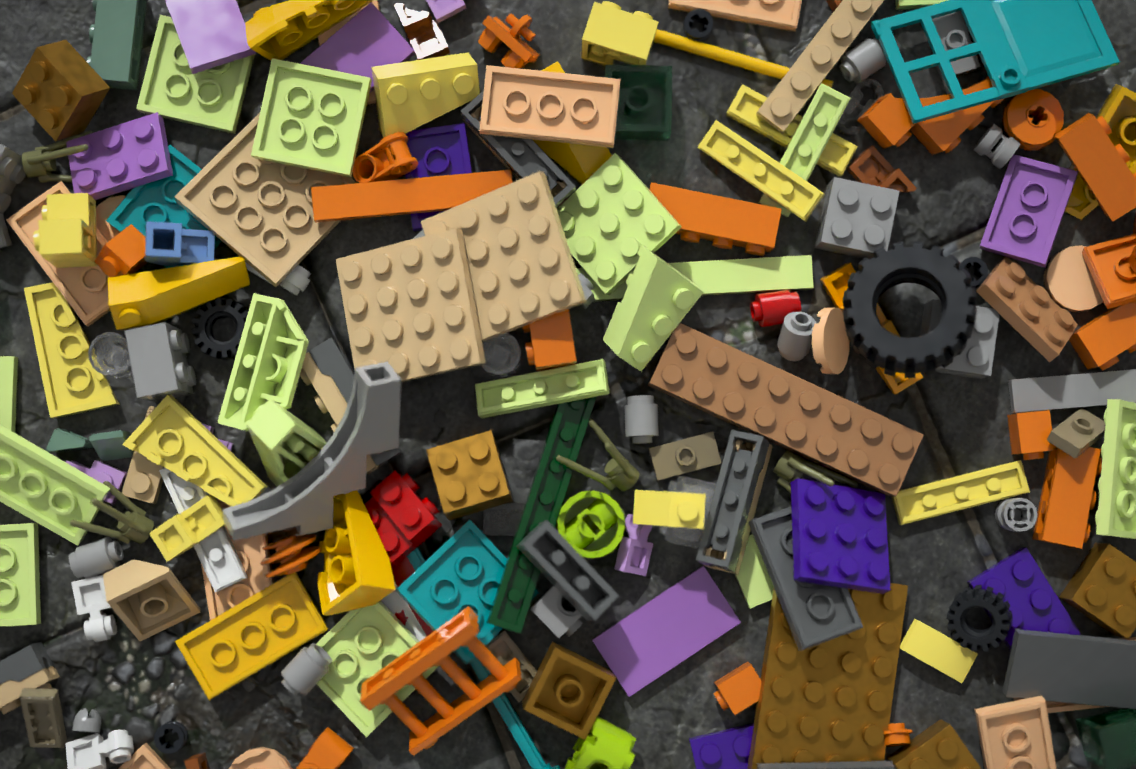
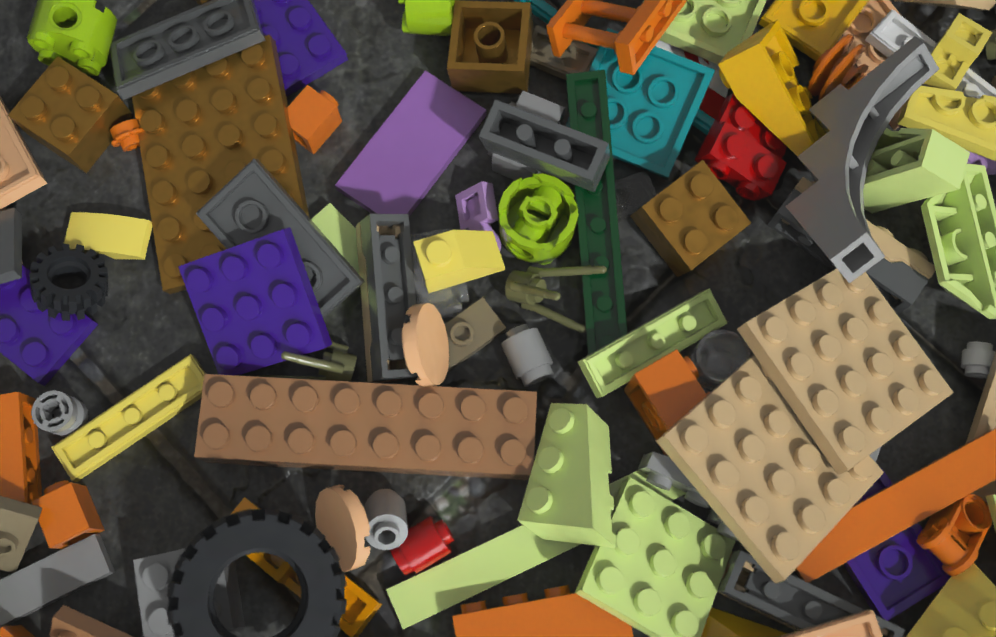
camera: 160 degrees right, 10 degrees down
(720, 450) = (426, 344): none -> light nougat tile

